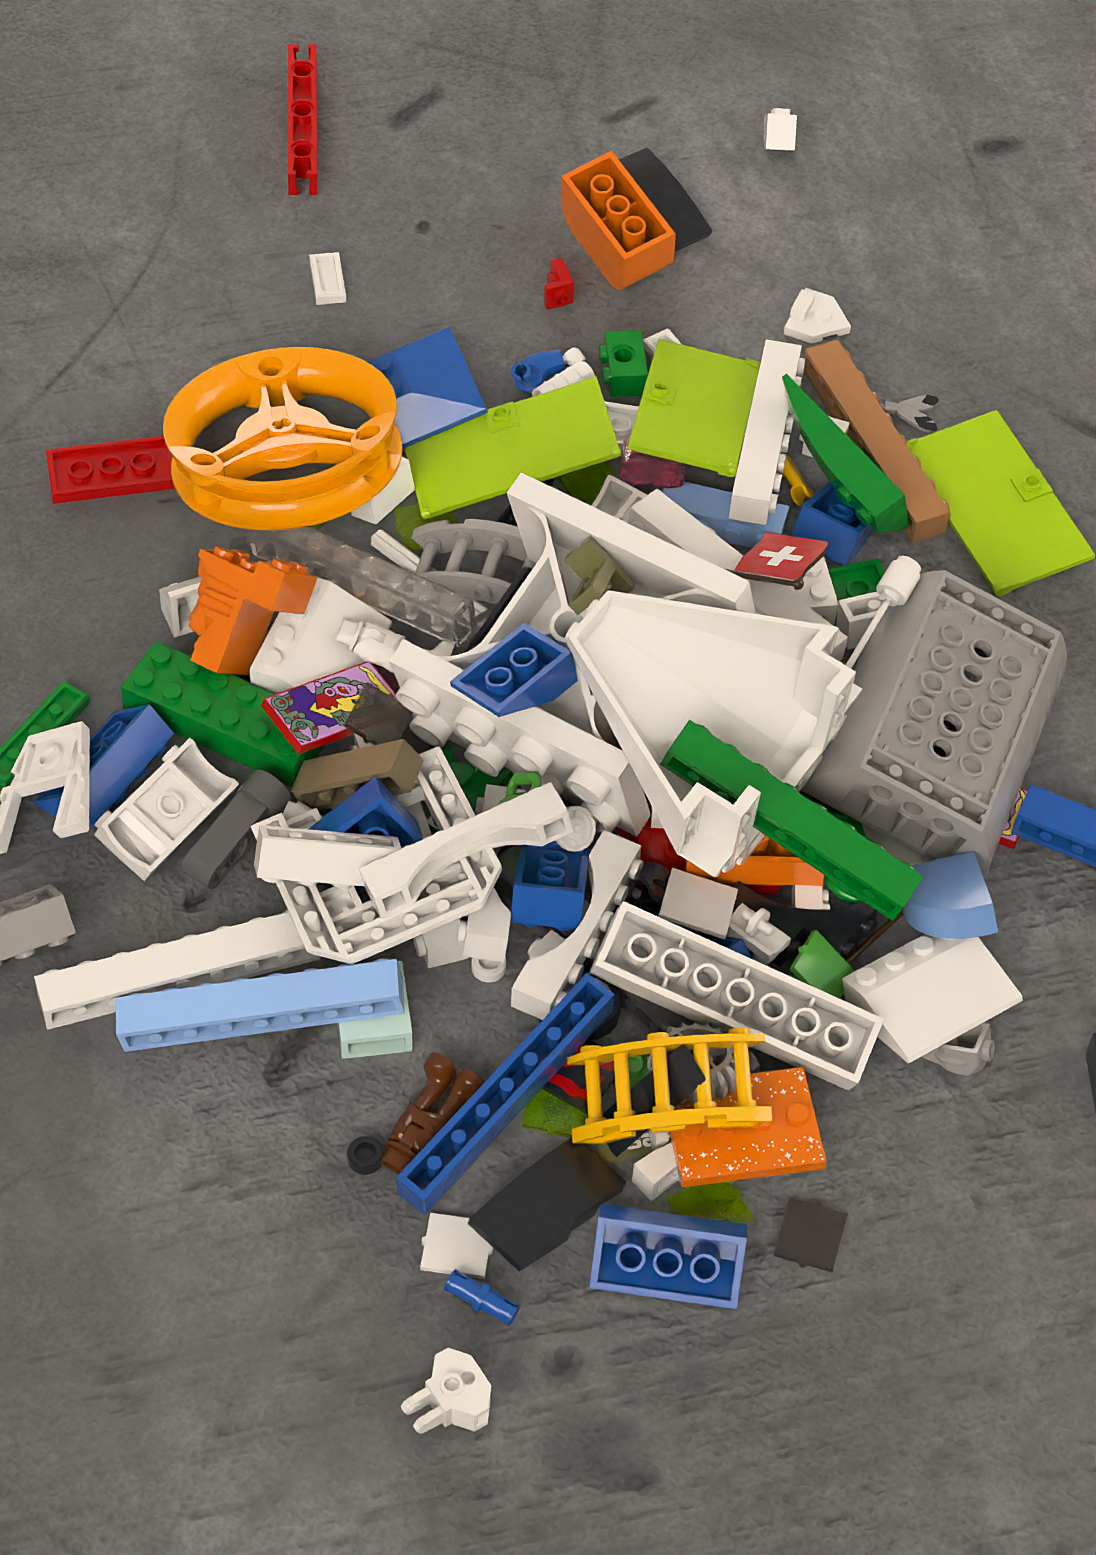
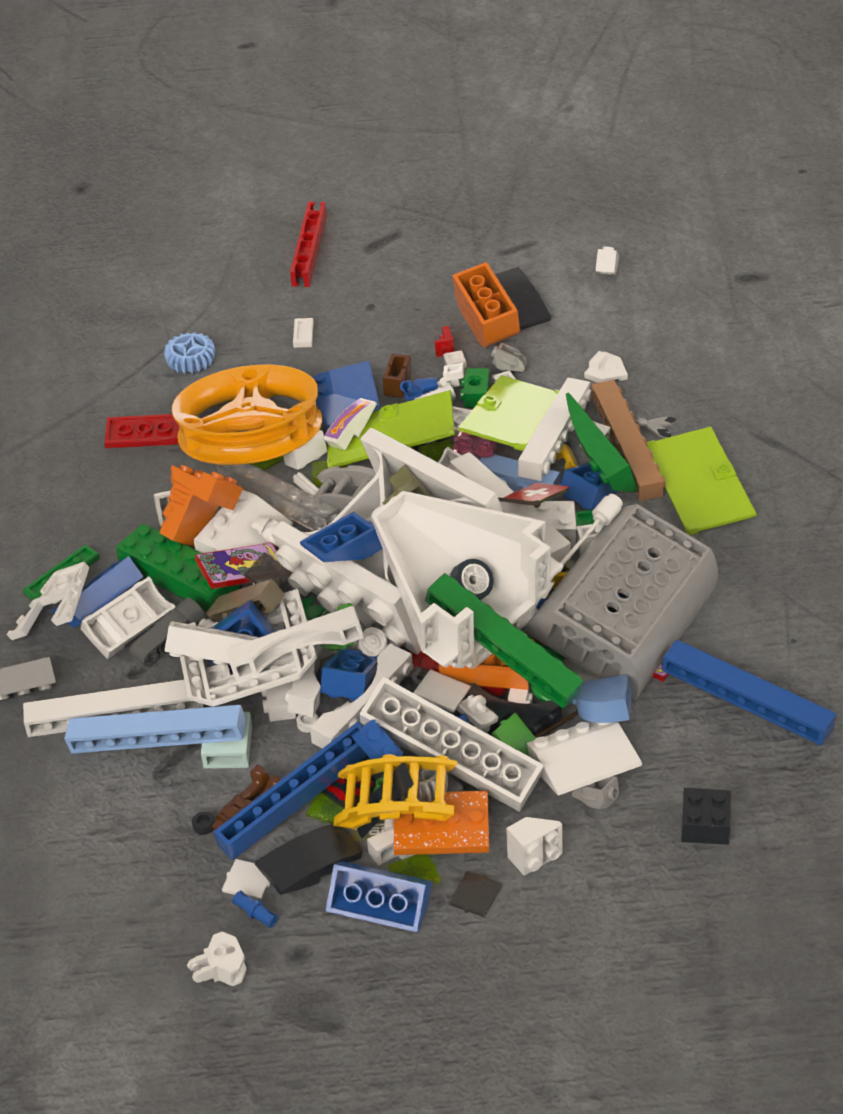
camera: 15 degrees right, 10 degrees down
(155, 326) = (189, 352): none -> light blue gear
(447, 442) = (349, 423): none -> slope
(498, 349) = (397, 371): none -> reddish brown piece
(578, 315) = (455, 358): none -> white tile
(588, 341) = (454, 373): none -> white tile
(626, 1009) = (375, 741): none -> blue brick
(663, 309) = (508, 358): none -> light grey hand
(730, 710) = (480, 576): none -> wheel
(887, 1147) = (534, 843): none -> white slope

